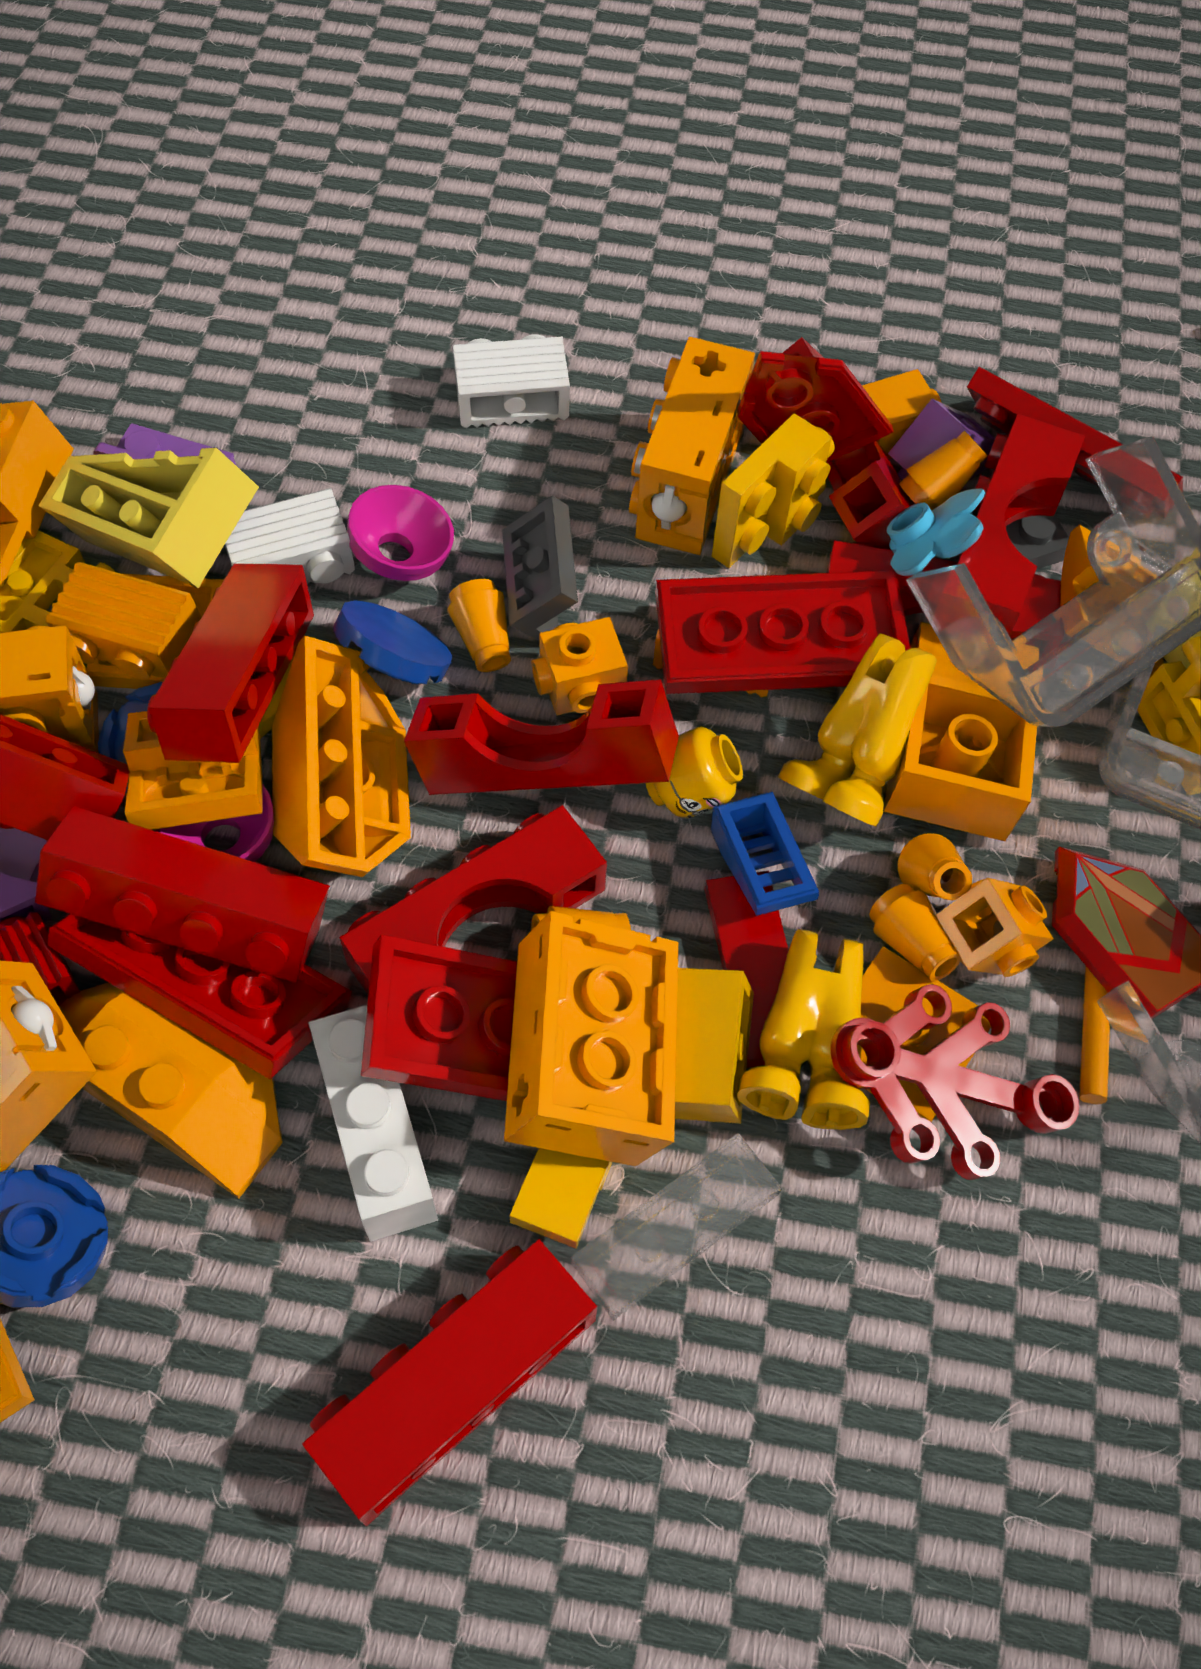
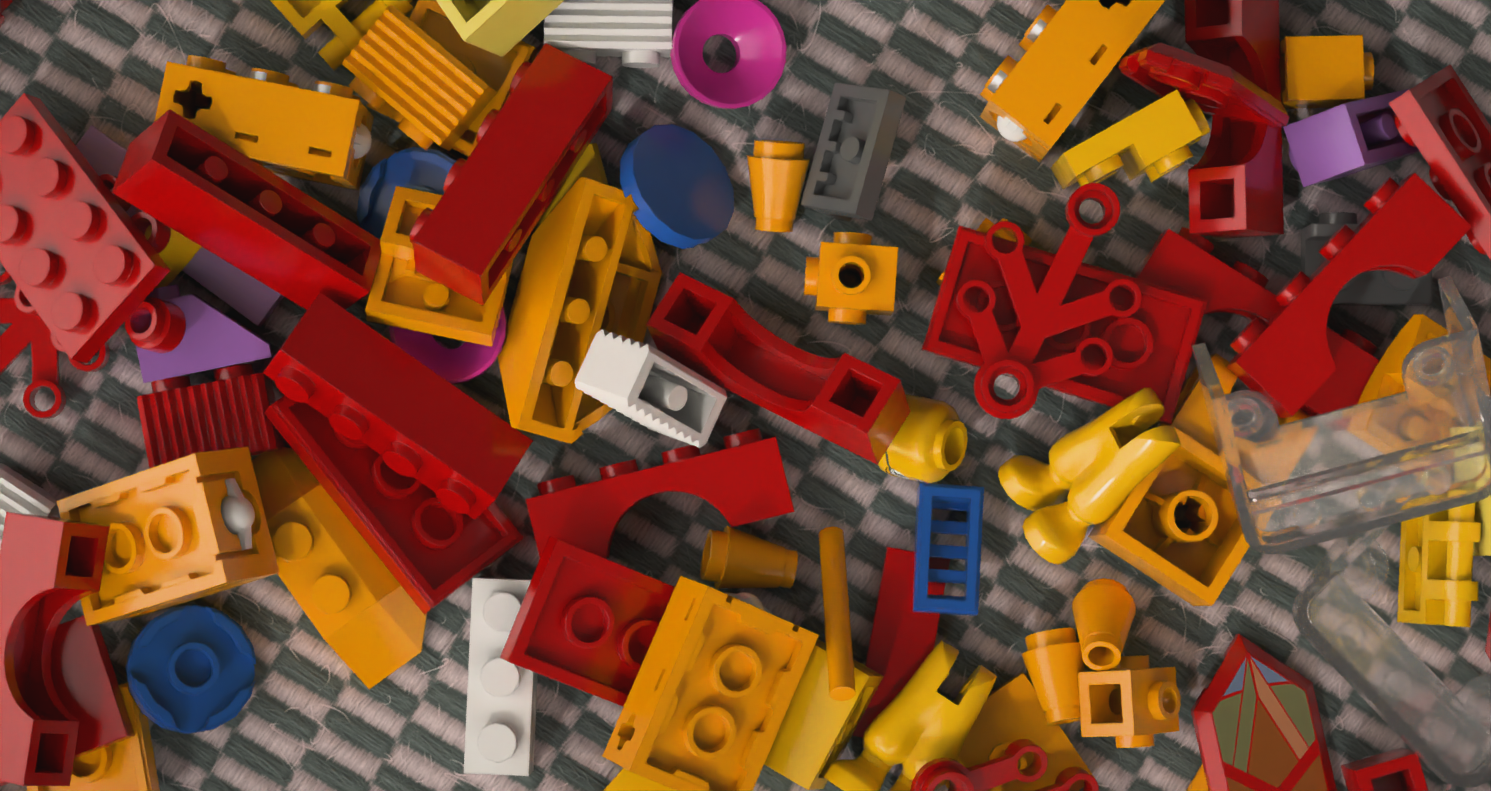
camera: 20 degrees right, 25 degrees up
(427, 796) = (650, 388): none -> white brick
(691, 941) = (836, 614): none -> light orange bar
(759, 611) = (1041, 311): none -> red plant
(924, 533) = (1259, 281): medium azure plate -> none
(943, 471) = (1313, 196): light orange cone -> none

